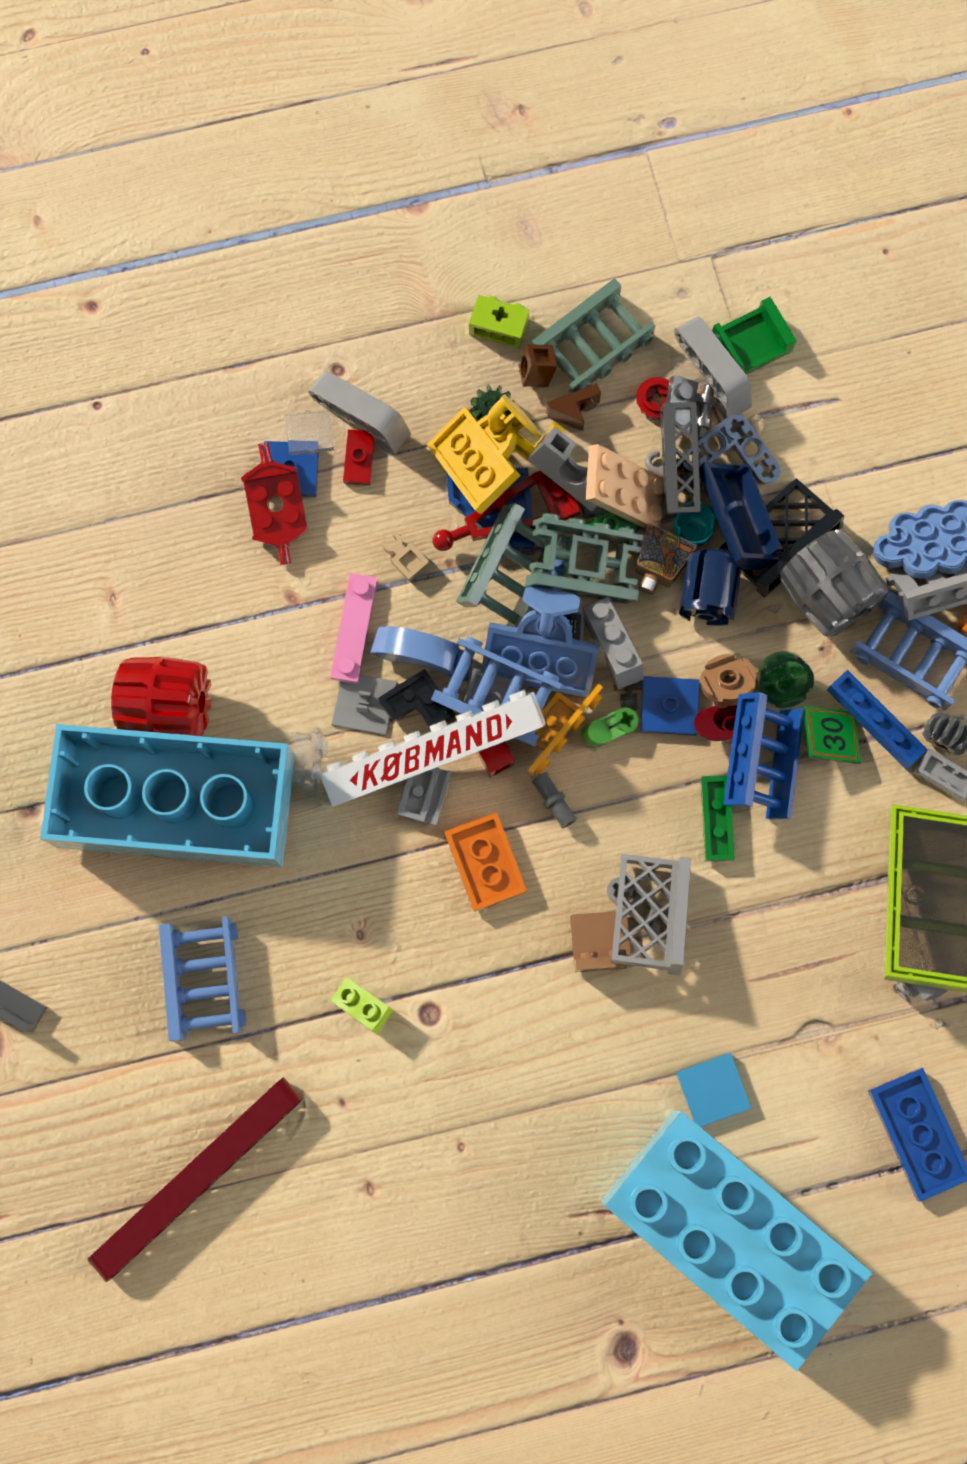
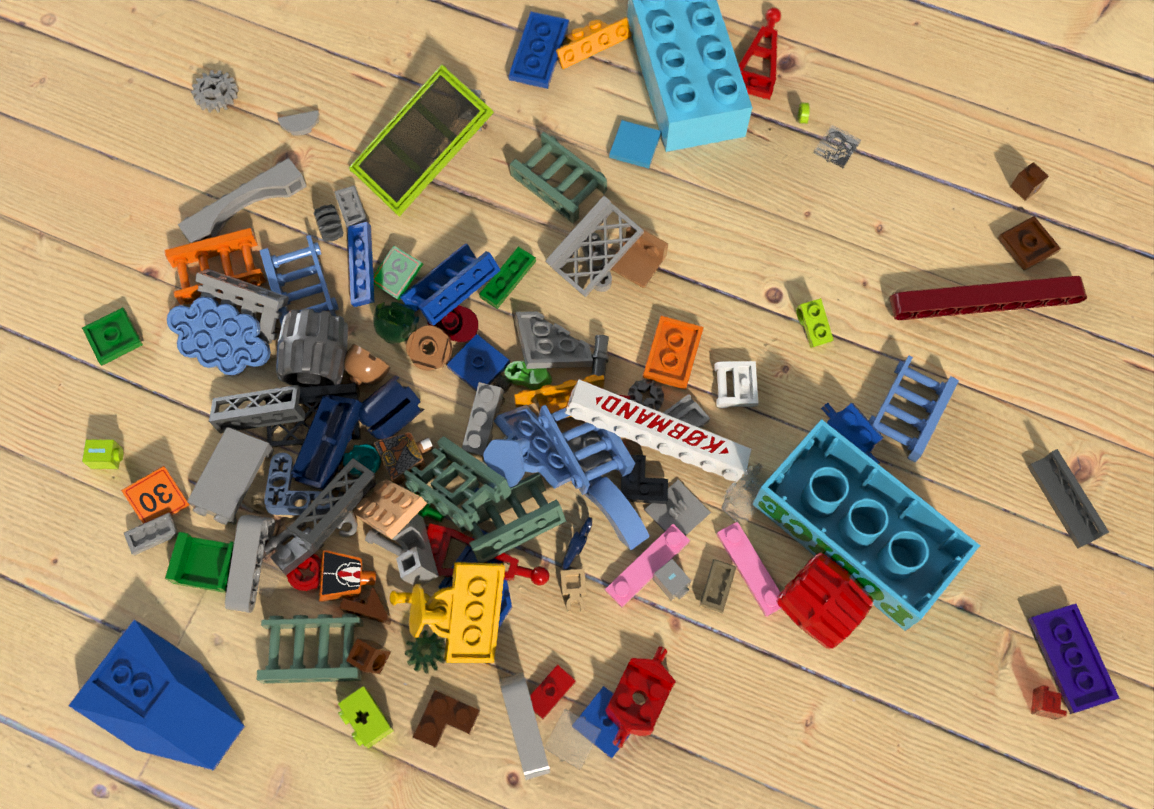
camera: 145 degrees left, 10 degrees down
(190, 1291) = (1029, 243): none -> reddish brown plate
(235, 1378) = (1029, 181): none -> reddish brown brick
(244, 898) = (854, 427): none -> blue plate
(257, 697) = (750, 567): none -> bright pink plate
(274, 655) = (718, 586): none -> dark tan plate
(319, 628) = (672, 580): none -> light grey brick
(390, 881) = (743, 384): none -> white plate
(433, 598) = (577, 543): none -> dark blue piece
(437, 377) = (442, 712): none -> reddish brown plate
(471, 806) = (643, 386): none -> flat silver gear
(486, 1267) = (837, 146): none -> clear piece
(553, 1279) = (803, 113): none -> lime tile
(615, 774) = (549, 344): none -> light grey plate
(619, 413) = (342, 576): none -> torso
(640, 1279) = (758, 84): none -> red plate
(683, 212) = (159, 701): none -> blue wedge
(772, 611) = (364, 367): none -> medium nougat cylinder
(776, 955) = (553, 195): none -> sand green fence
(803, 424) = (228, 475): none -> light grey panel
(823, 328) = (151, 534): none -> light grey plate
(826, 489) = (254, 415): none -> dark grey fence
(849, 357) = (155, 495): none -> orange piece
(873, 1195) = (591, 40): none -> light orange bracket
(935, 358) = (102, 454): none -> lime brick

